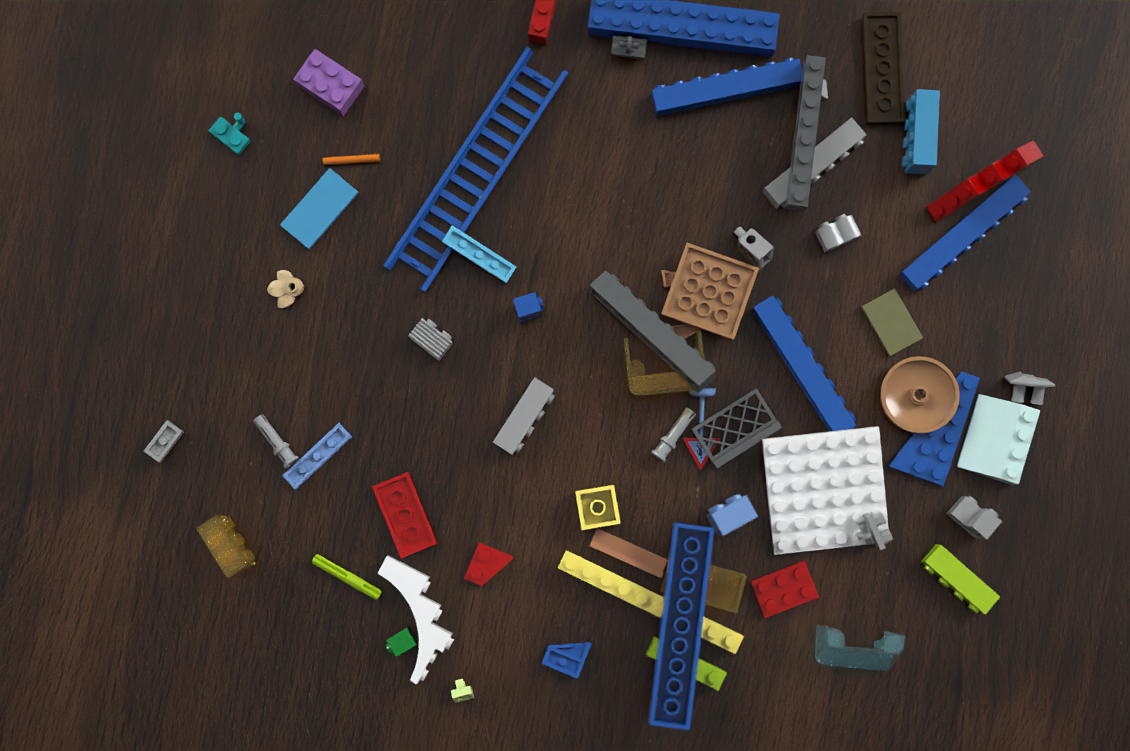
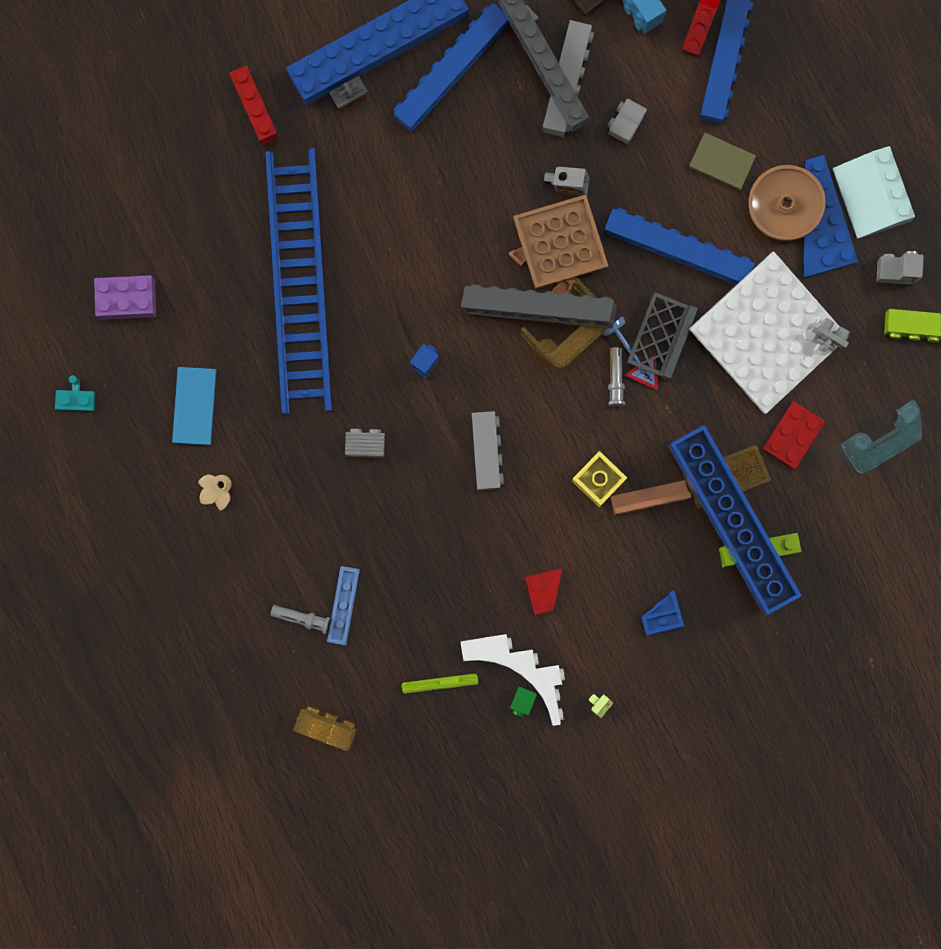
camera: 35 degrees left, 0 degrees up
(163, 441) = (209, 685): light grey plate -> none
(351, 159) = (191, 346): orange bar -> none
(404, 515) = (449, 599): red plate -> none
(478, 254) = (352, 347): medium azure plate -> none
(641, 597) = (685, 524): light yellow brick -> none
(731, 515) = (710, 405): medium blue brick -> none
(1022, 380) = (858, 134): light grey connector -> none

